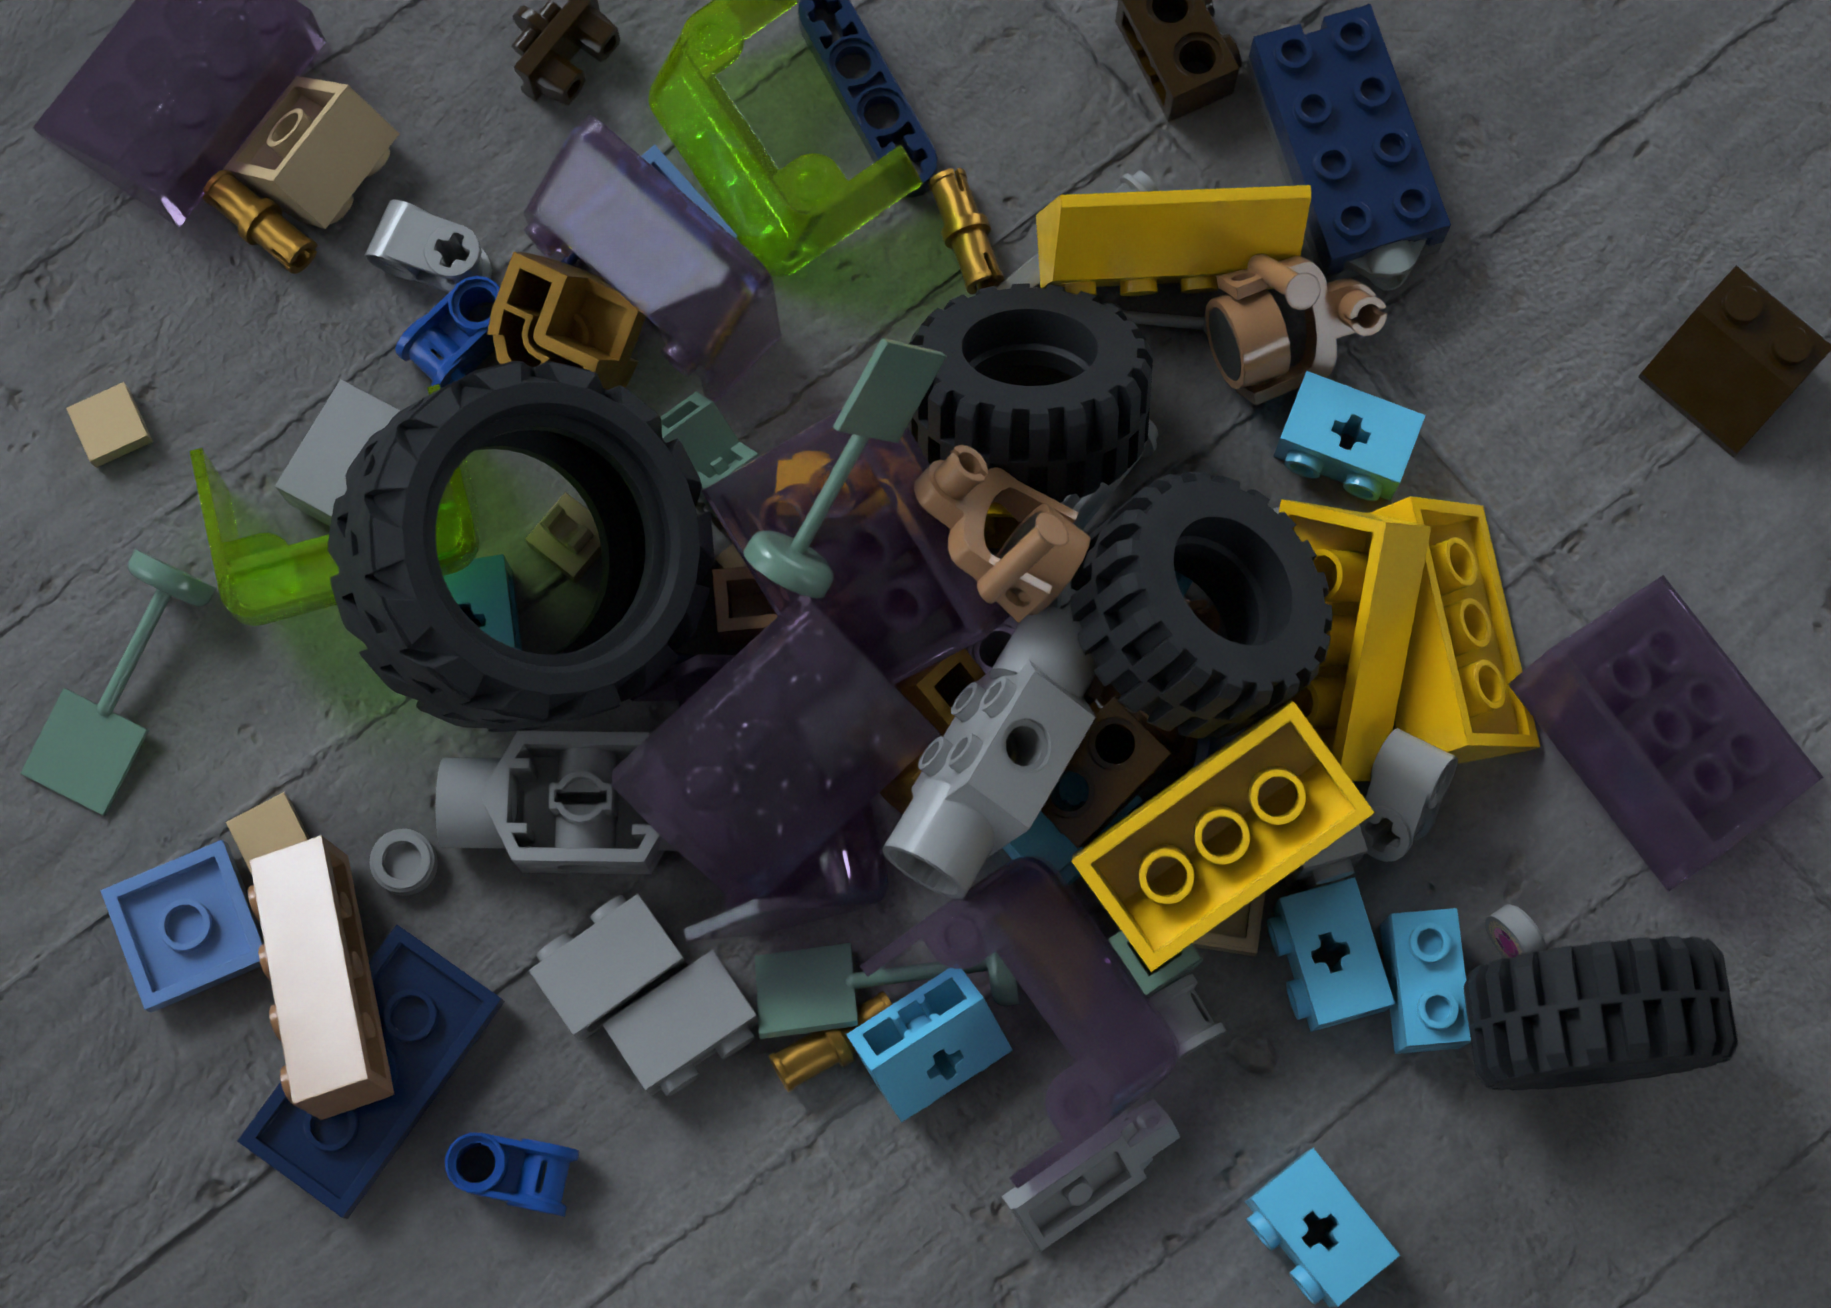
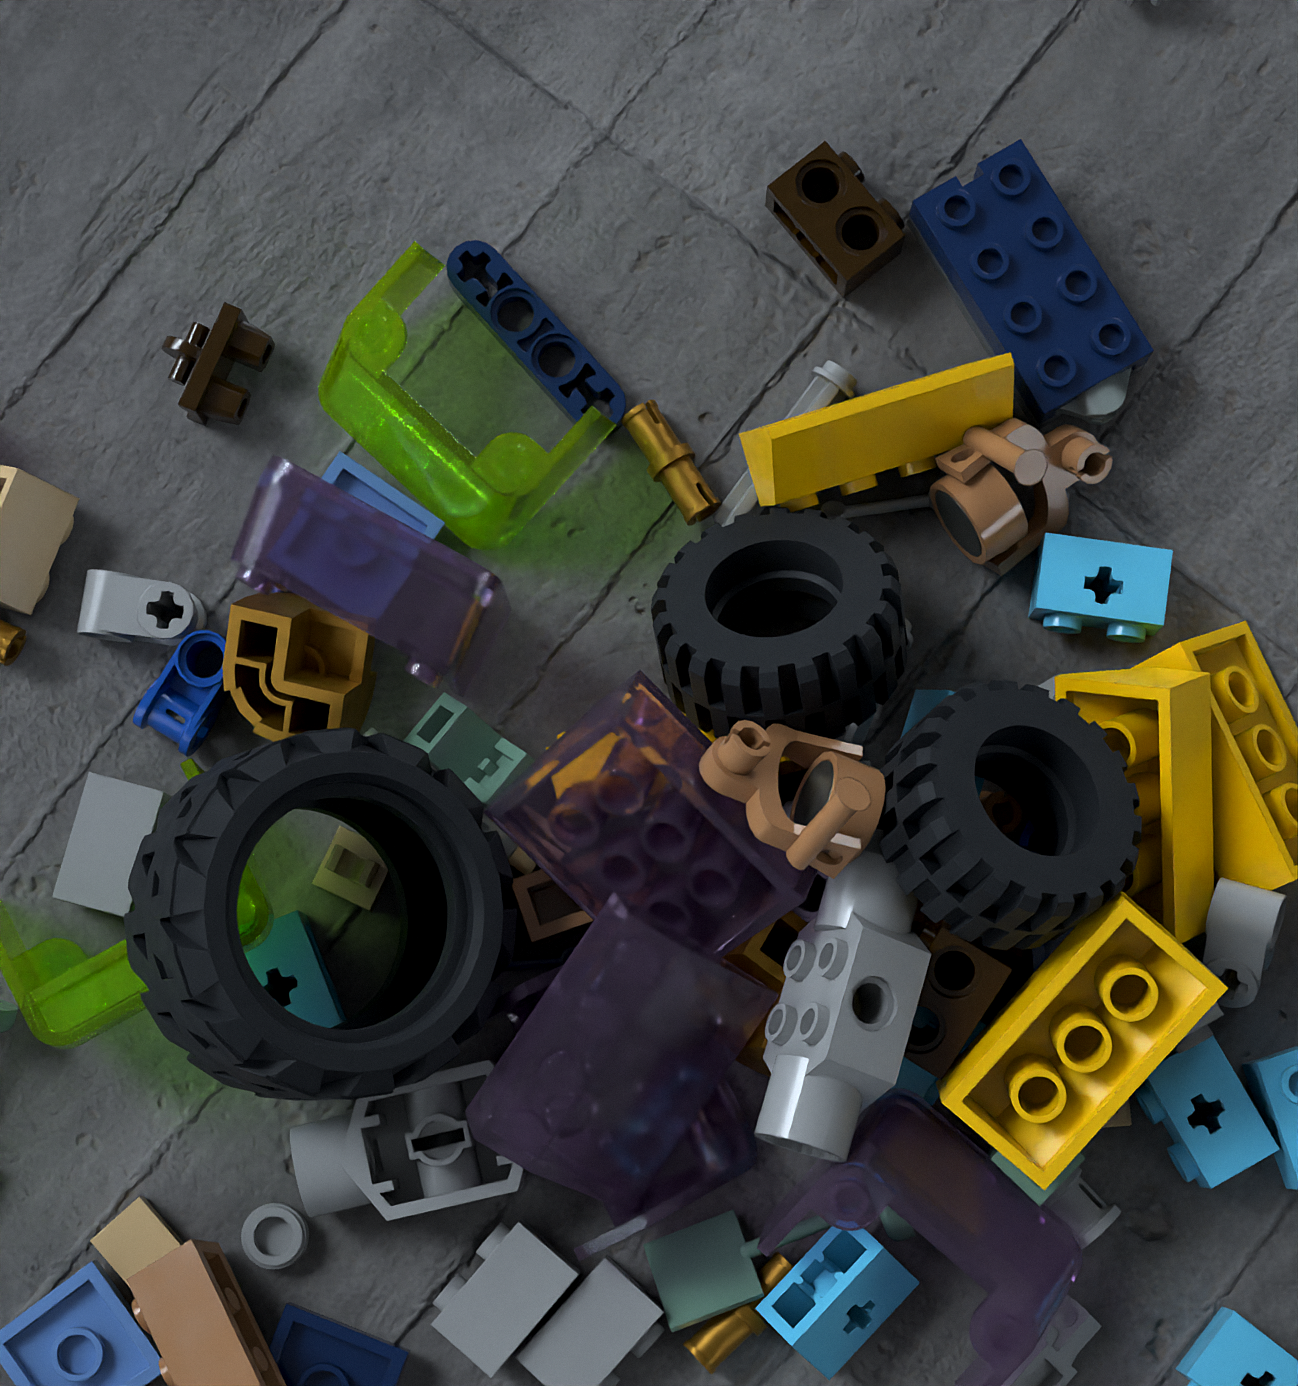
camera: 10 degrees left, 5 degrees up
(876, 409) = (649, 709): sand green piece -> none

